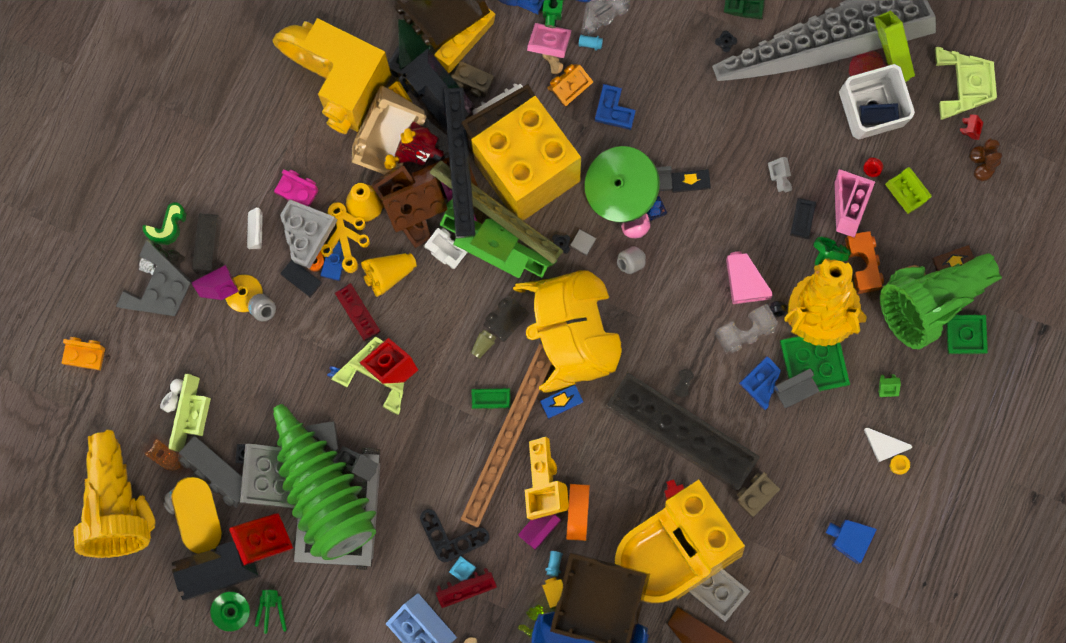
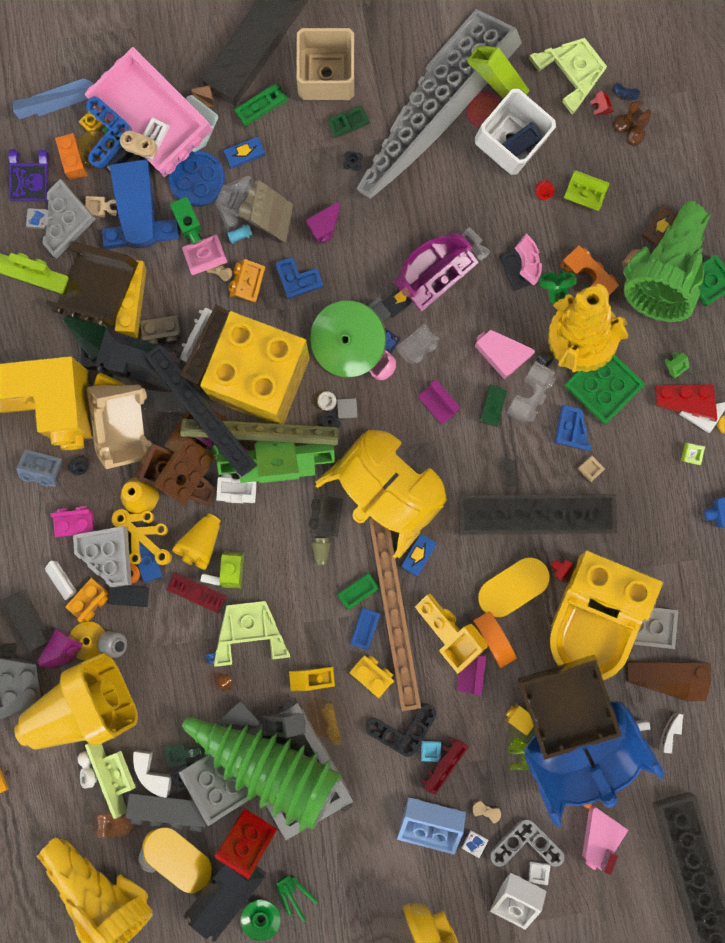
camera: 40 degrees left, 5 degrees up
(206, 339) = (85, 705): none -> yellow cone
(222, 444) = (155, 782): none -> white brick
(254, 433) = (178, 754): none -> clear green plate
(265, 260) = (88, 600): none -> light orange bracket
(298, 127) = (39, 468): none -> sand blue bracket
(331, 146) = (79, 465): none -> black plate
(331, 399) = (224, 682): none -> clear orange plate
(376, 308) = (210, 579): none -> white tile
(389, 363) = (255, 621): red slope -> none
(398, 311) = (231, 569): none -> lime torso
(398, 485) = (333, 730): none -> clear yellow wing
(404, 443) = (311, 679): none -> yellow slope
(415, 146) = (152, 419): dark red torso -> none
(455, 475) = (372, 676): none -> yellow bracket
(476, 433) = (365, 628): none -> blue tile
(554, 564) = (503, 695): medium azure pin -> none
(570, 225) = (326, 401): none -> white tile
(623, 480) = (513, 587): none -> yellow tile
(625, 37) = (267, 210): none -> dark tan slope
(631, 260) = (398, 397): light grey head -> none
(663, 286) = (439, 402): none -> magenta panel
(666, 78) = (324, 223): none -> magenta slope
(678, 227) = (417, 345): none -> clear bracket
(707, 319) = (493, 406): none -> dark green slope
(732, 172) = (432, 270): none -> magenta piece
(756, 425) = (591, 468): none -> tan tile
(757, 495) = (630, 525): dark tan bracket -> none
(796, 388) = (606, 416): dark grey panel -> none
(821, 218) = (530, 259): none -> bright pink tile
(851, 201) = (548, 230): bright pink wedge -> none
(852, 469) = (693, 453): none -> lime tile
(881, 422) = (693, 399): none -> red wing
(1004, 134) = (621, 90): none -> dark blue piece

